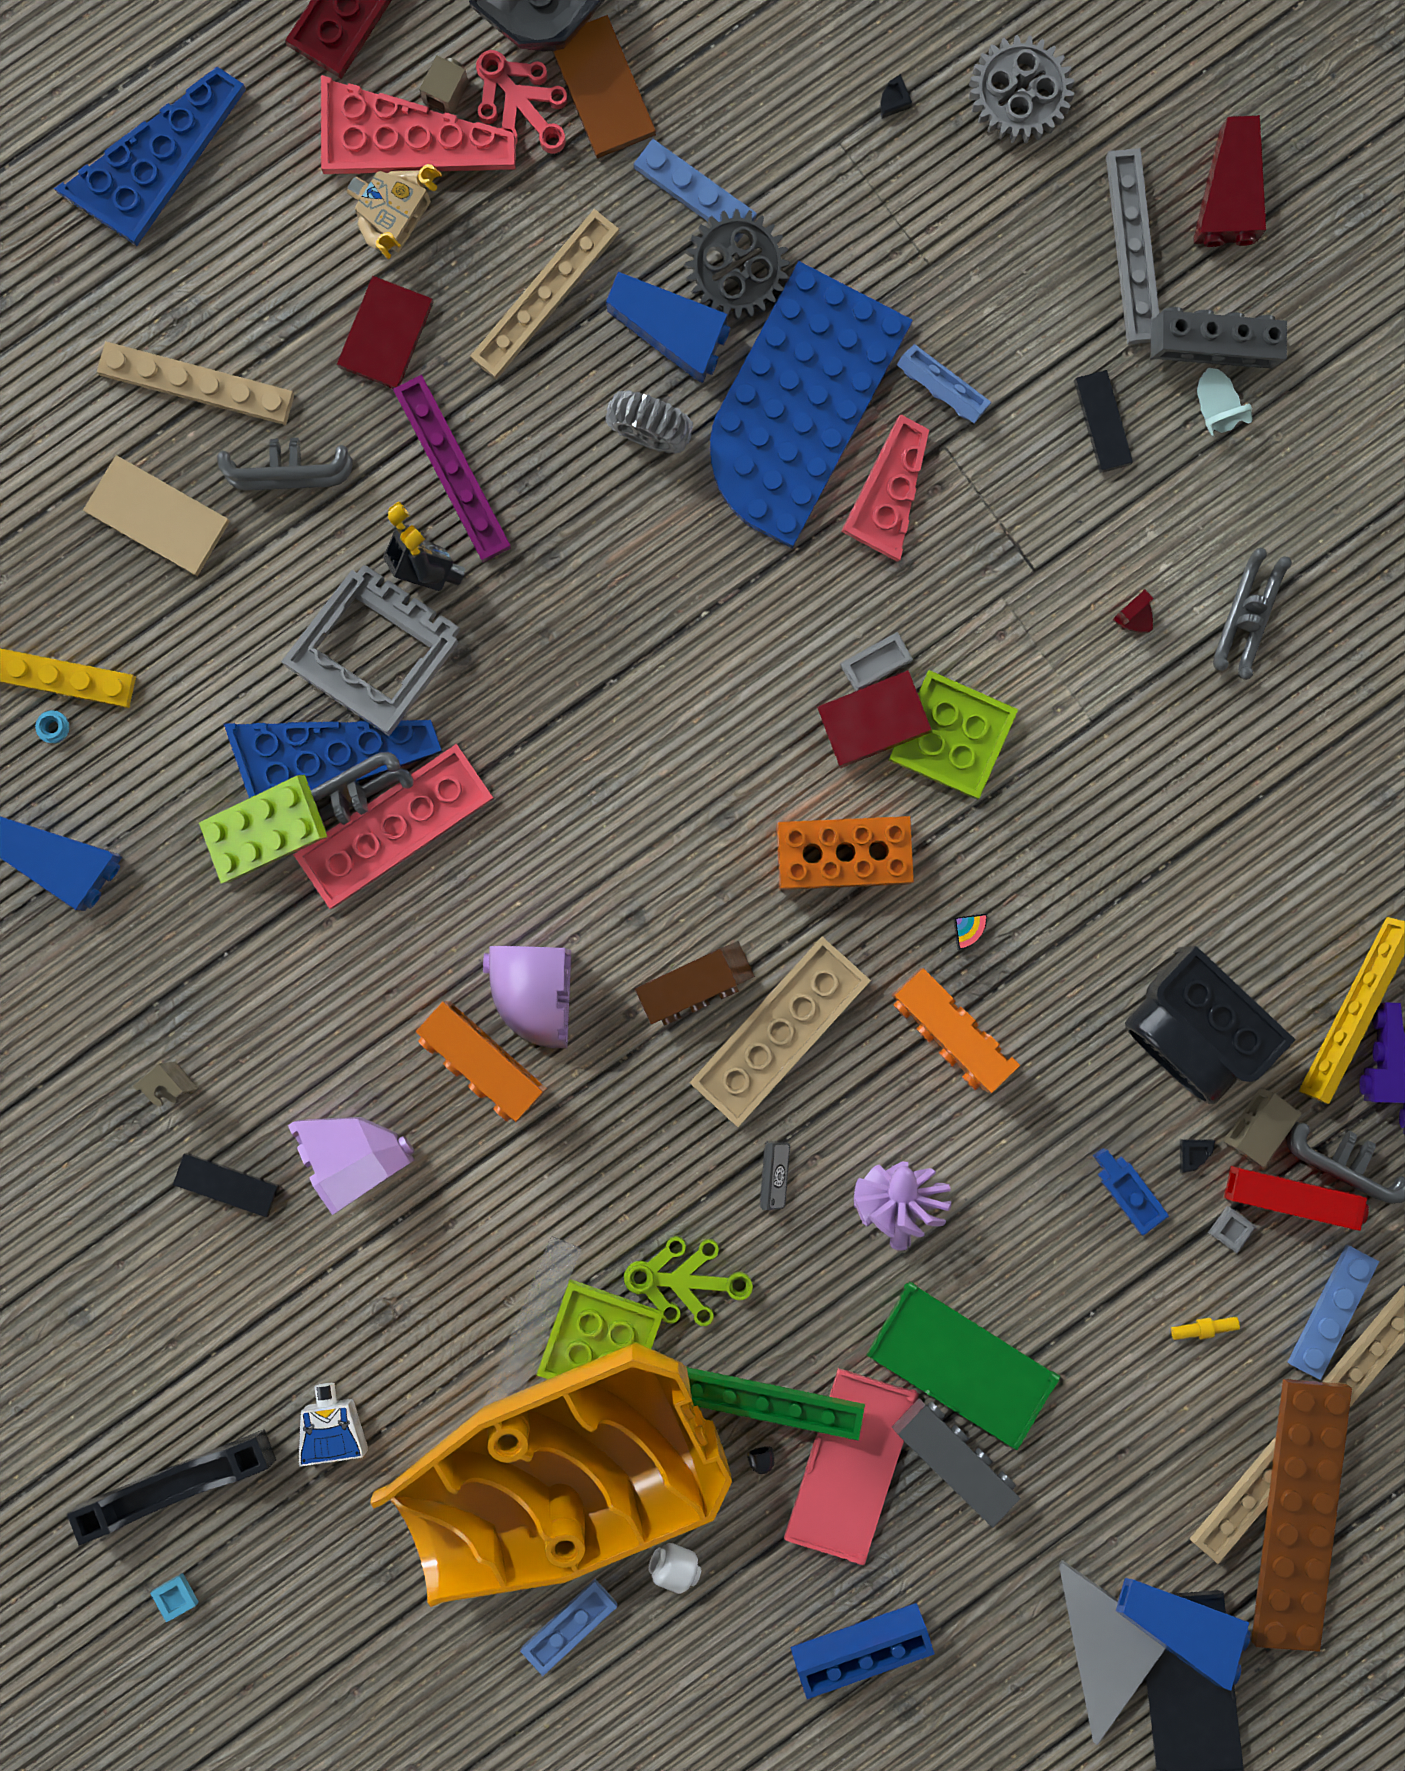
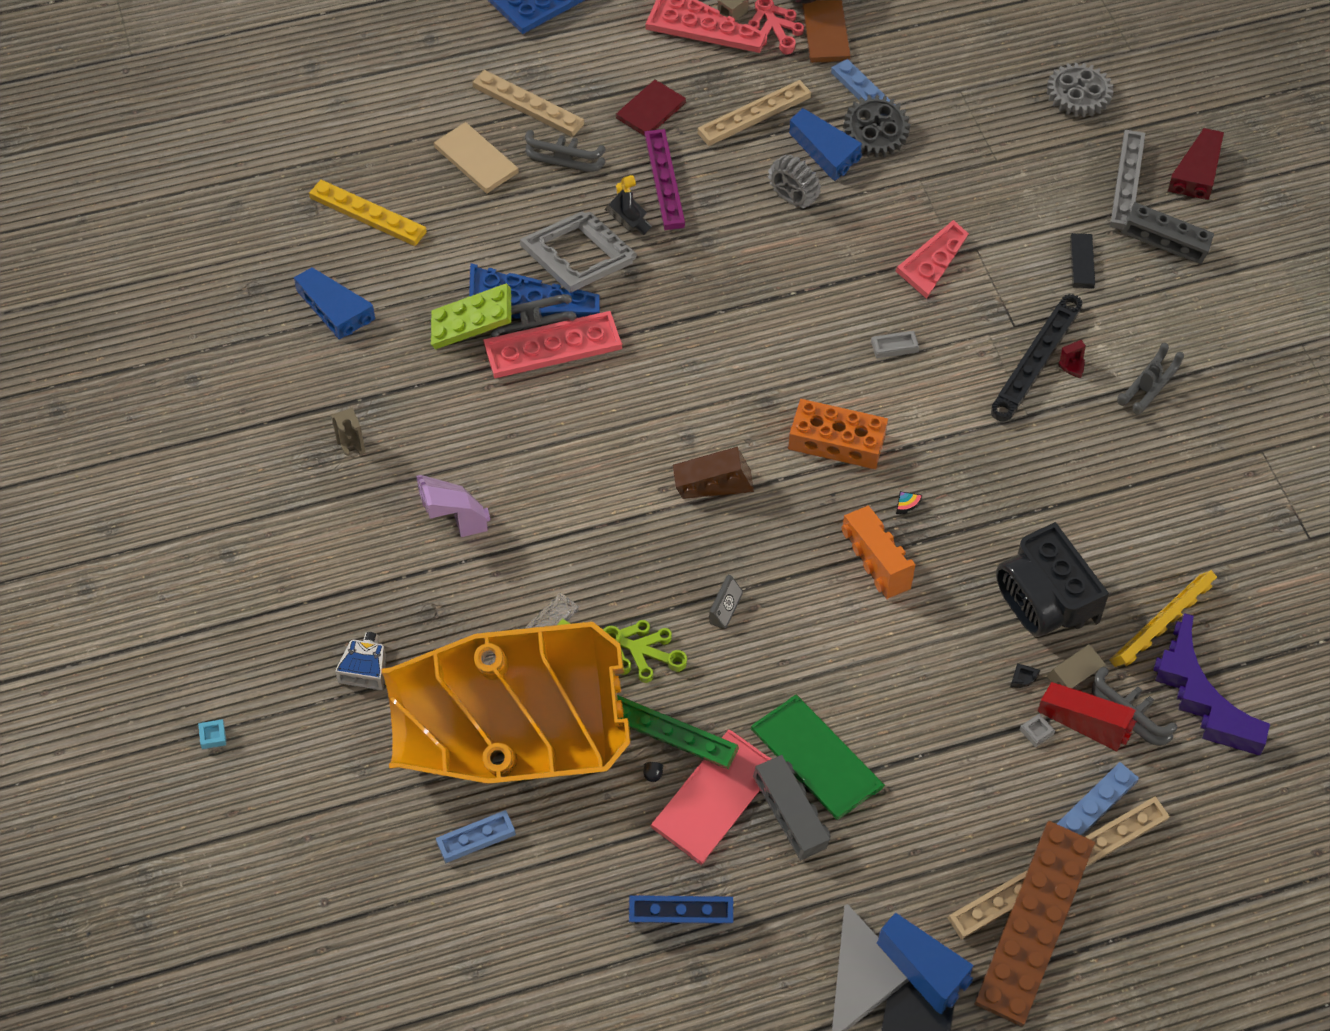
camera: 20 degrees right, 30 degrees down
(45, 720) = (364, 240): medium azure plate -> none
(171, 1485) = (199, 664): black arch -> none
(225, 1184) = (359, 507): black tile -> none
(392, 205) = (681, 49): tan torso -> none
(481, 1061) = (557, 476): orange brick -> none
(532, 991) = (607, 444): lavender brick -> none
(674, 1568) = (565, 819): white head -> none
(779, 1031) = (759, 522): tan plate -> none
(800, 400) = (892, 203): blue plate -> none
(874, 719) = (883, 368): dark red tile -> none
(894, 98) = (1001, 77): black tile -> none
(895, 1202) = (807, 631): lavender piece -> none
(943, 384) = (985, 214): medium blue plate -> none
(964, 735) = (932, 392): lime plate -> none
(1083, 622) = (1036, 357): none -> black plate
(1130, 1192) = (970, 683): blue hinge -> none
(1205, 1328) = (999, 784): yellow bar -> none
(1220, 402) = (1161, 269): light aqua piece -> none

